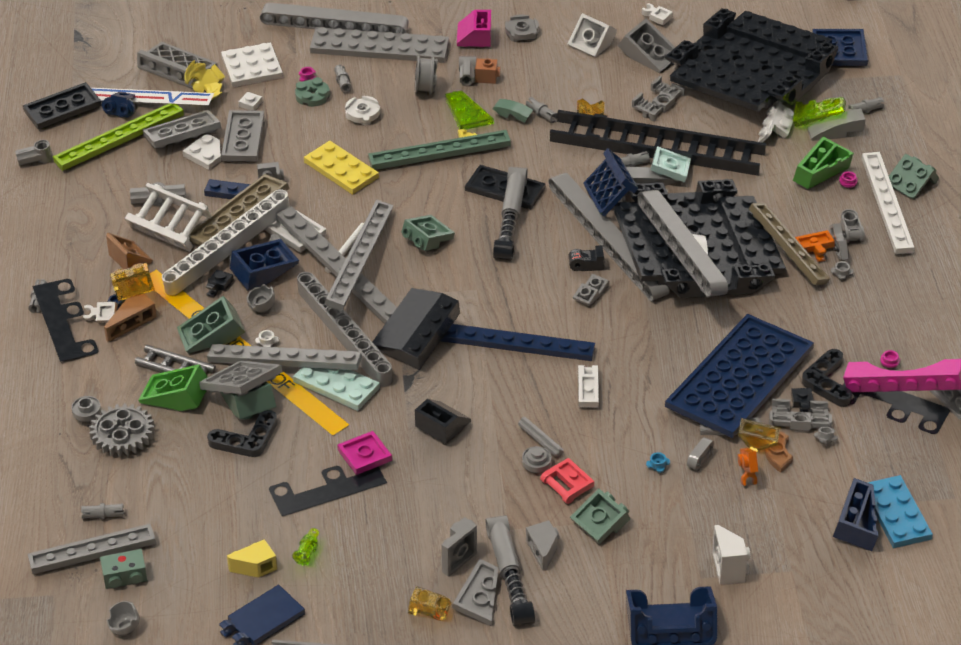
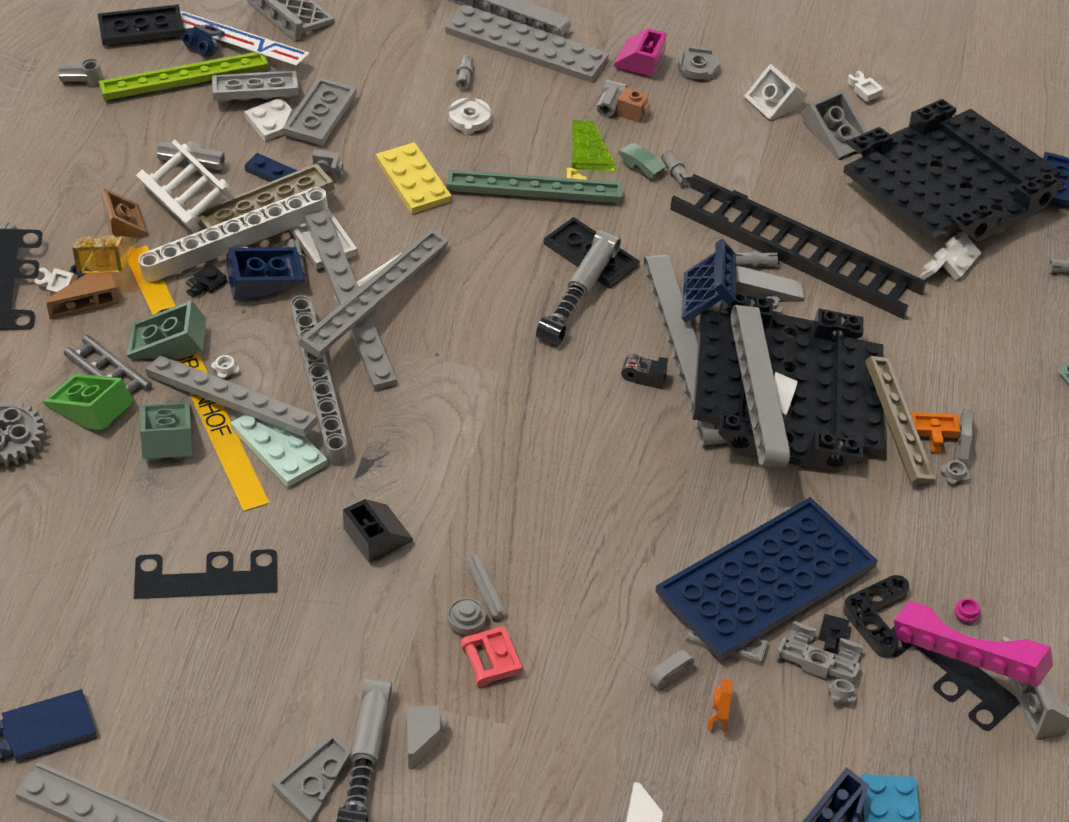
camera: 15 degrees right, 5 degrees up
(206, 78) = (309, 34): light yellow animal -> none
(221, 439) = (141, 490): black beam -> none
(241, 377) = (163, 408): light grey plate -> none
(250, 101) = (349, 73): white plate -> none
(251, 64) = (372, 30): white plate -> none
(253, 560) = (67, 647): light yellow slope -> none
(261, 298) = (241, 314): light grey hair -> none
(304, 91) = (417, 72): sand green plate -> none
(307, 73) = (427, 57): dark pink plate -> none
(308, 545) = (141, 647): clear neon green piece -> none
(364, 452) = (266, 545): dark pink plate -> none
(417, 326) = (401, 401): black slope -> none
(425, 74) = (555, 91): light grey wheel -> none
(426, 232) = (471, 284): sand green plate -> none
(429, 604) = (244, 773): clear yellow leg -> none
(460, 546) = (315, 708): light grey plate -> none
(520, 342) = (496, 444): dark blue plate -> none
(585, 108) = (740, 184): clear yellow panel -> none
(588, 386) = (573, 537): white plate -> none
(592, 290) = (635, 412): light grey slope -> none
(600, 515) = (509, 718): sand green plate -> none
(658, 462) = (614, 658): dark azure plate -> none
(666, 94) = (834, 187): light grey piece -> none
(670, 164) = (798, 277): light aqua plate -> none
(758, 435) = (751, 666): clear yellow slope -> none
(778, 454) = (771, 691): medium nougat tile -> none
(819, 111) = (1007, 257): clear neon green wing -> none
(822, 163) = (985, 325): bright green wedge -> none
(838, 126) = (1026, 281): slope -> none
(848, 179) = (1012, 354): dark pink plate -> none
(851, 226) = (989, 417): light grey piece -> none
(887, 203) = (1048, 400): white plate -> none

